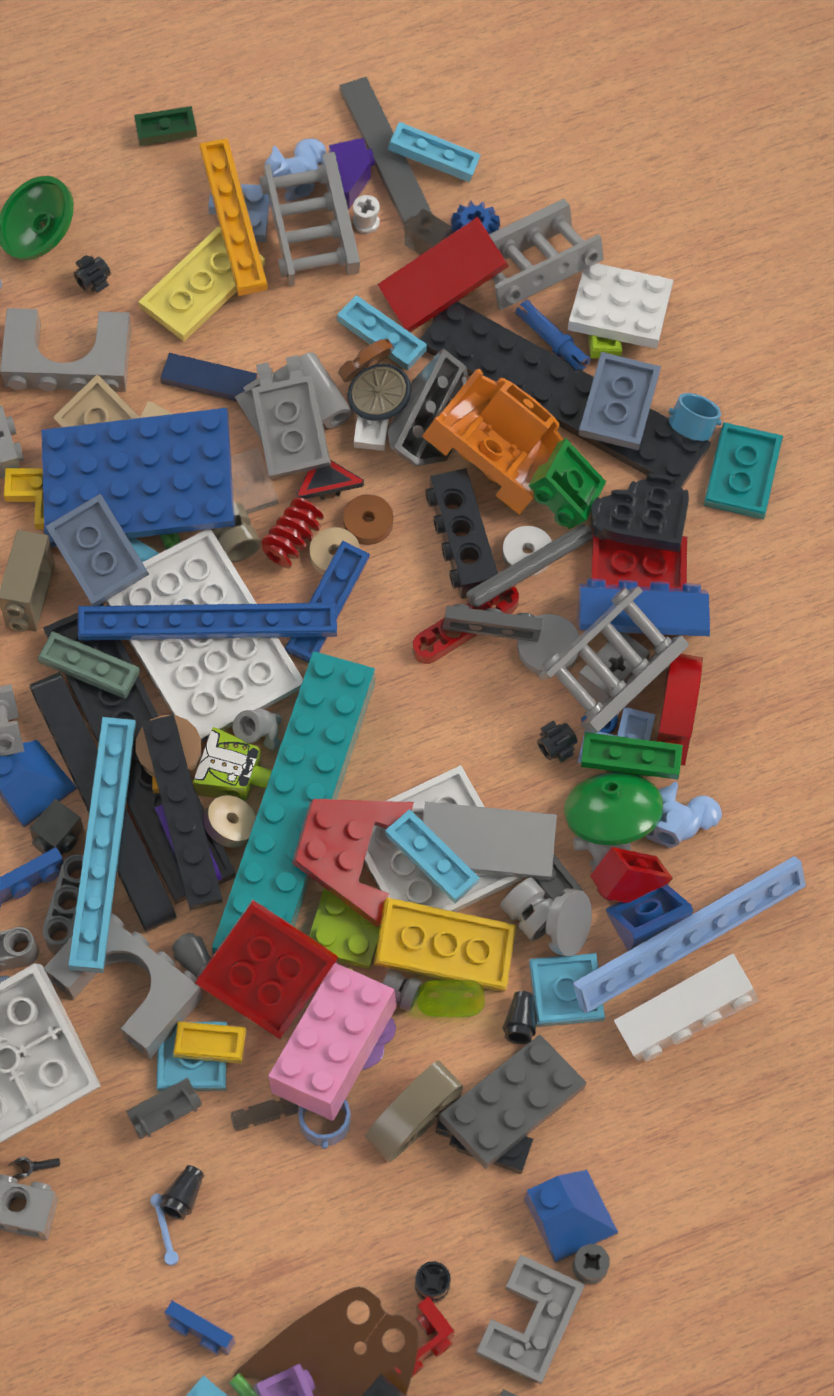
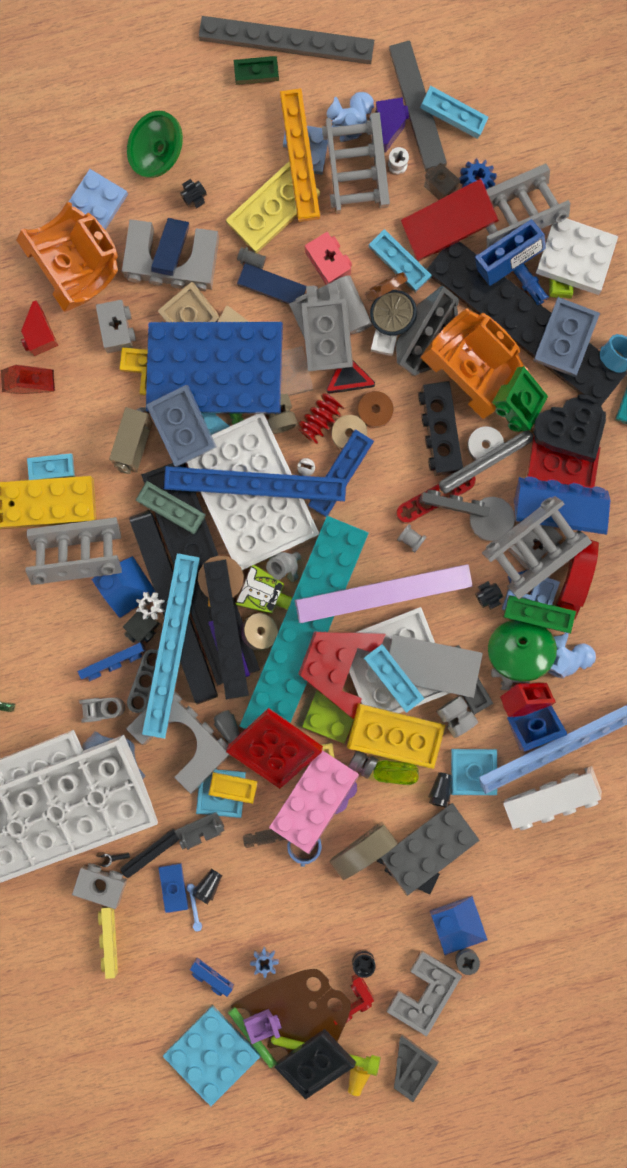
camera: 10 degrees right, 20 degrees up
(34, 1289) = (107, 940): none -> light yellow plate
(60, 795) = (154, 609): none -> white gear
(65, 338) = (170, 247): none -> dark blue tile
(90, 1154) = (149, 853): none -> black axle
(130, 1202) = (173, 887): none -> blue plate
(177, 345) = (251, 258): none -> dark grey pin
(202, 89) = (286, 40): none -> dark grey plate
(272, 596) = (305, 471): none -> white hinge
(281, 334) = (325, 246): none -> coral brick
(281, 1306) = (265, 968): none -> medium blue gear
(403, 746) = (383, 593): none -> lavender tile
(437, 678) = (411, 538): none -> light grey bush
(529, 302) = (510, 252): none -> blue brick
(569, 922) = (481, 731): light grey tile -> none

